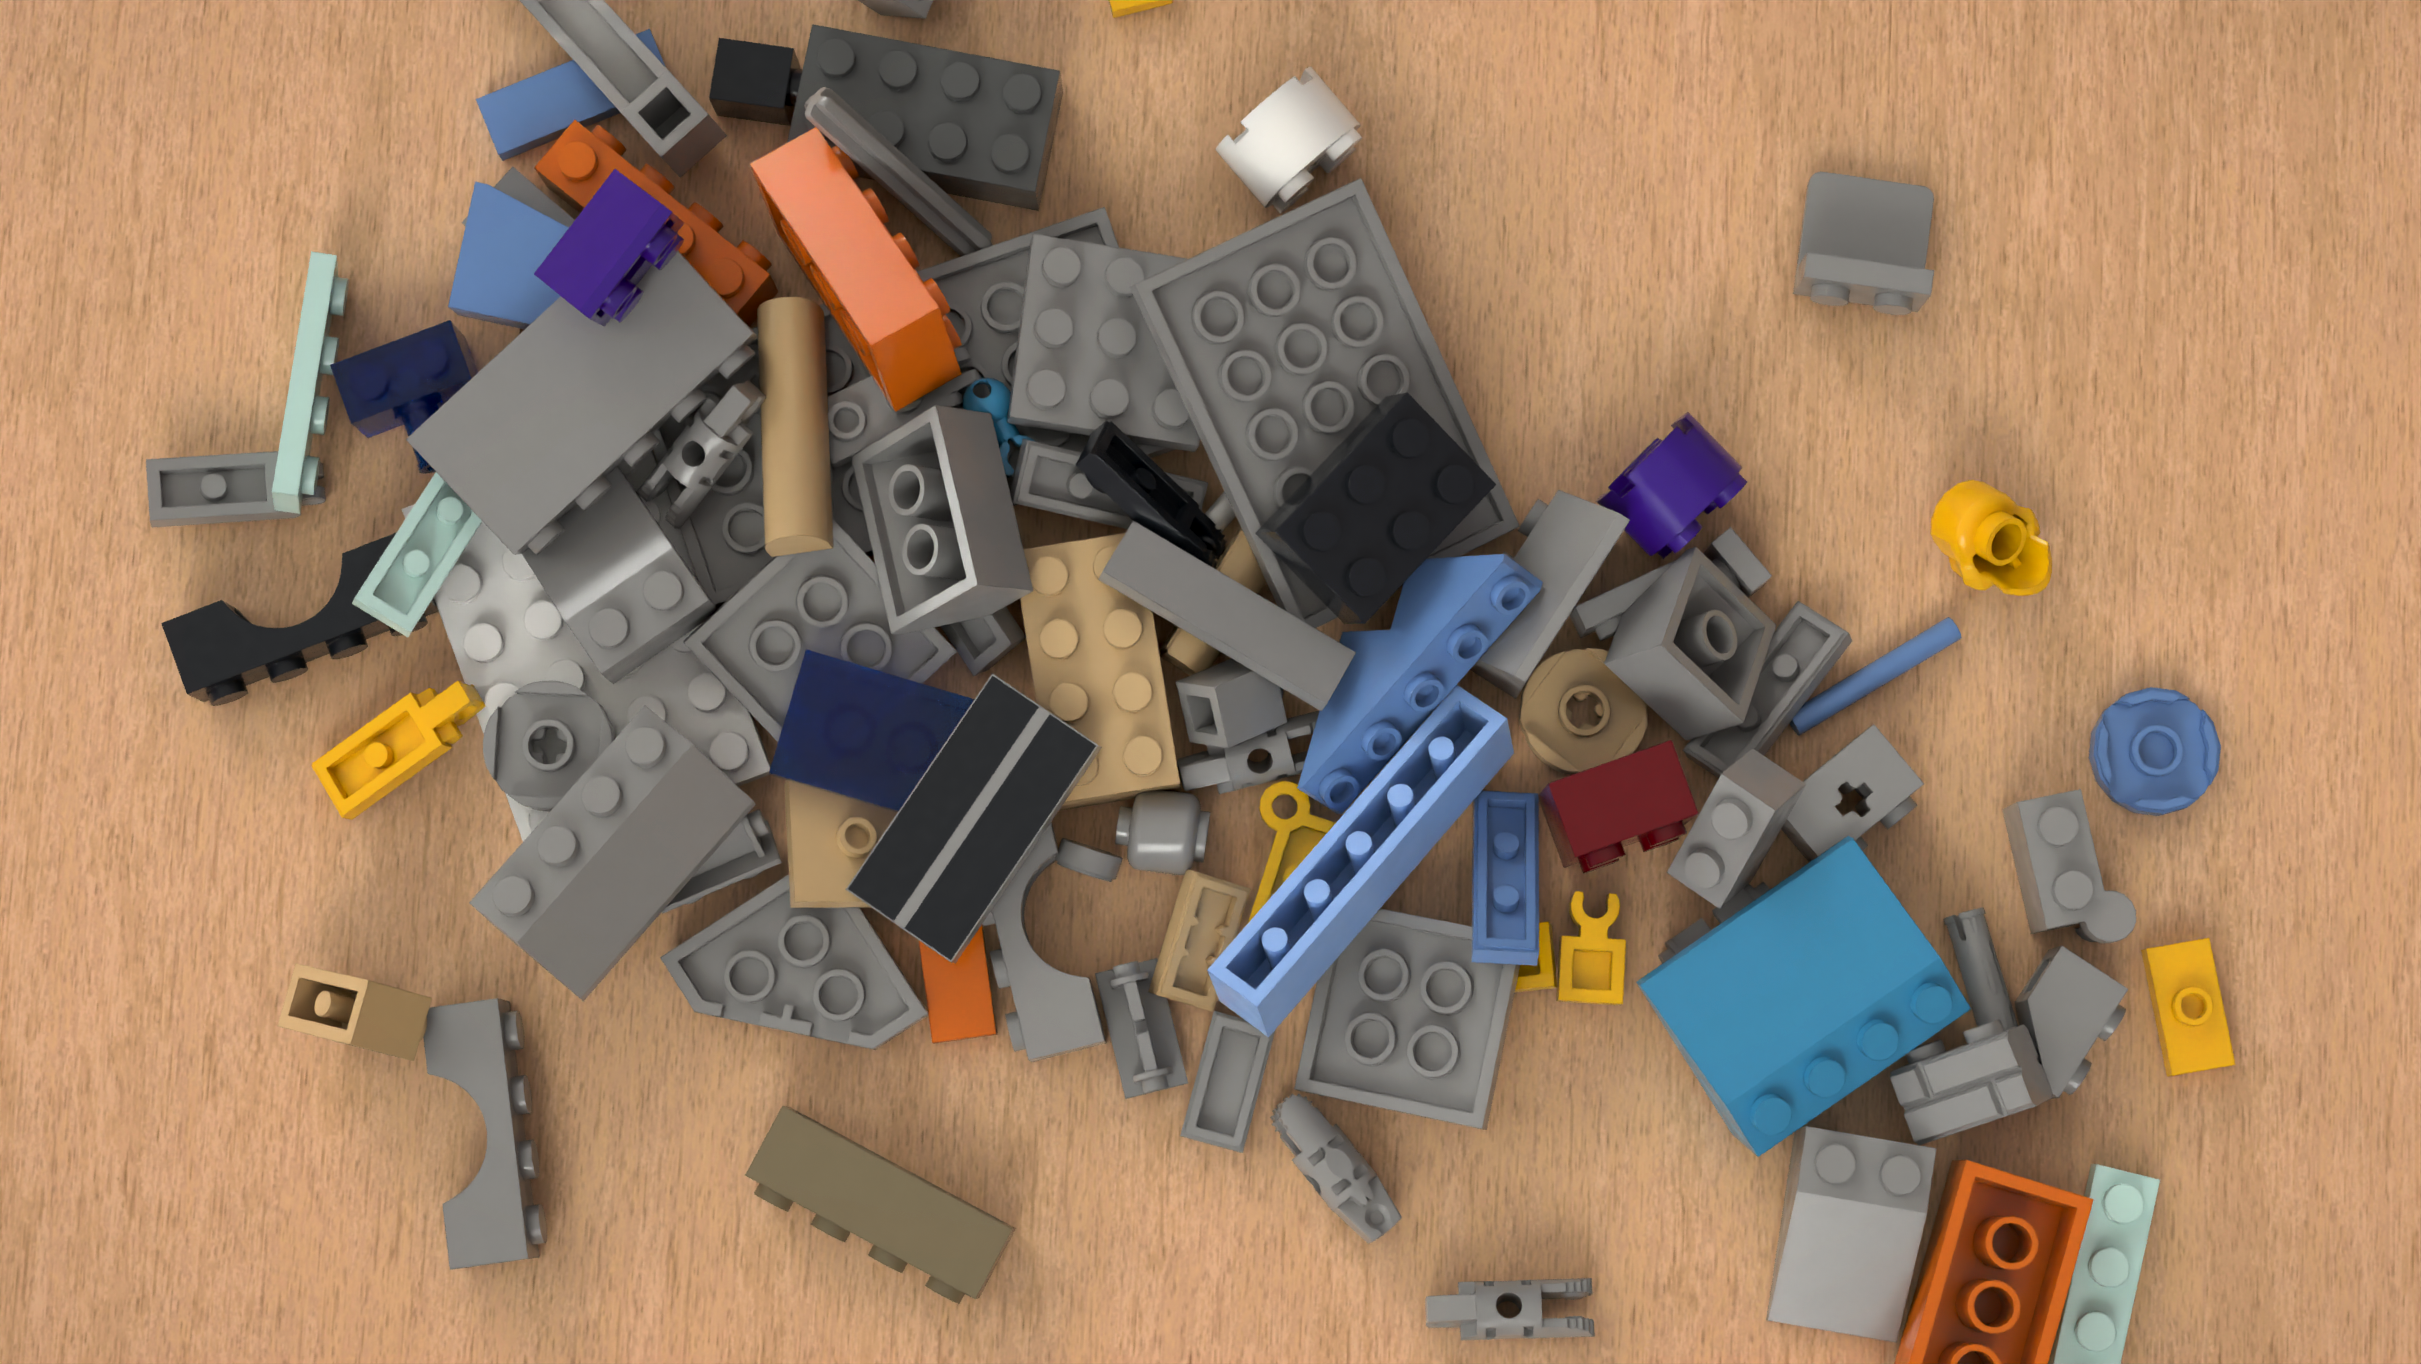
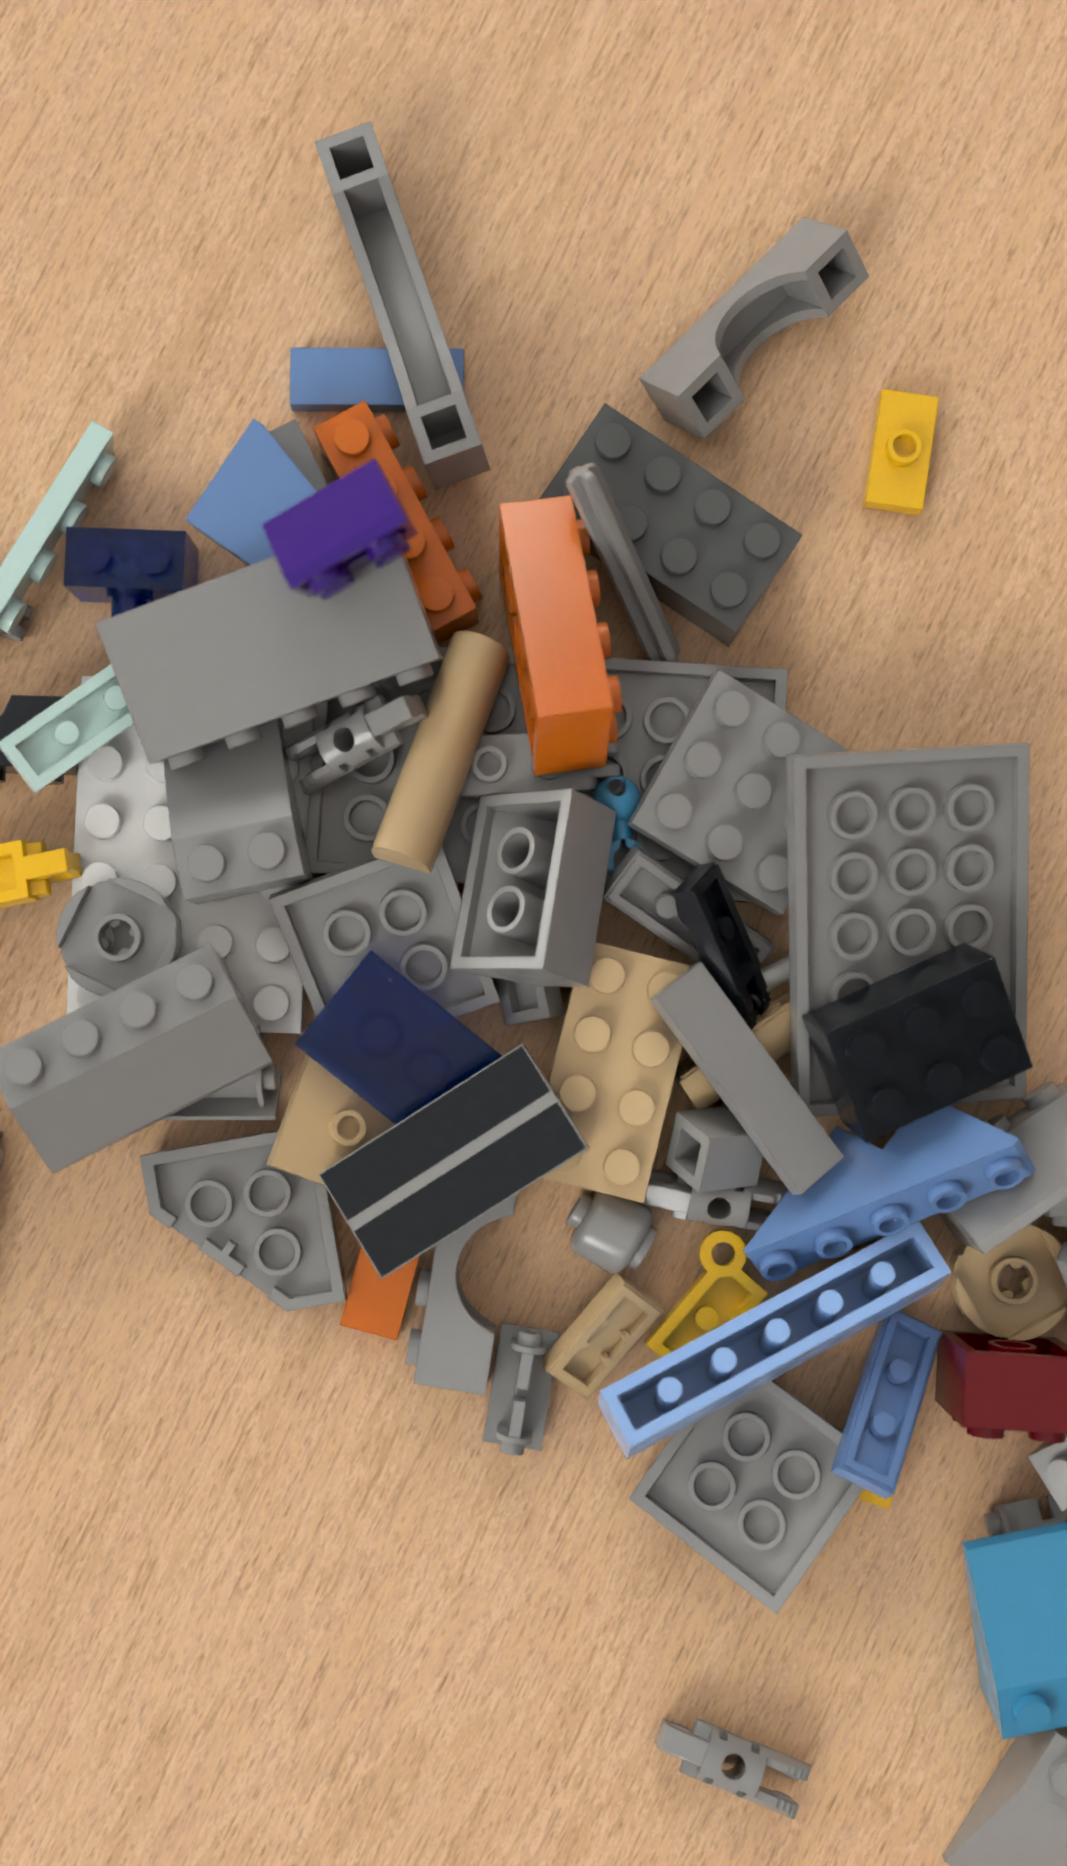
camera: 20 degrees right, 5 degrees up
(755, 81) = (534, 432): black brick -> none
(880, 1203) = (239, 1446): dark tan brick -> none
(1088, 860) = (537, 1226): light grey tile -> none
(1227, 1083) = (571, 1465): light grey tile -> none
(1289, 138) = (974, 678): white brick -> none
(1335, 1168) = (634, 1579): light grey hinge -> none
(1591, 963) = (925, 1496): yellow plate -> none

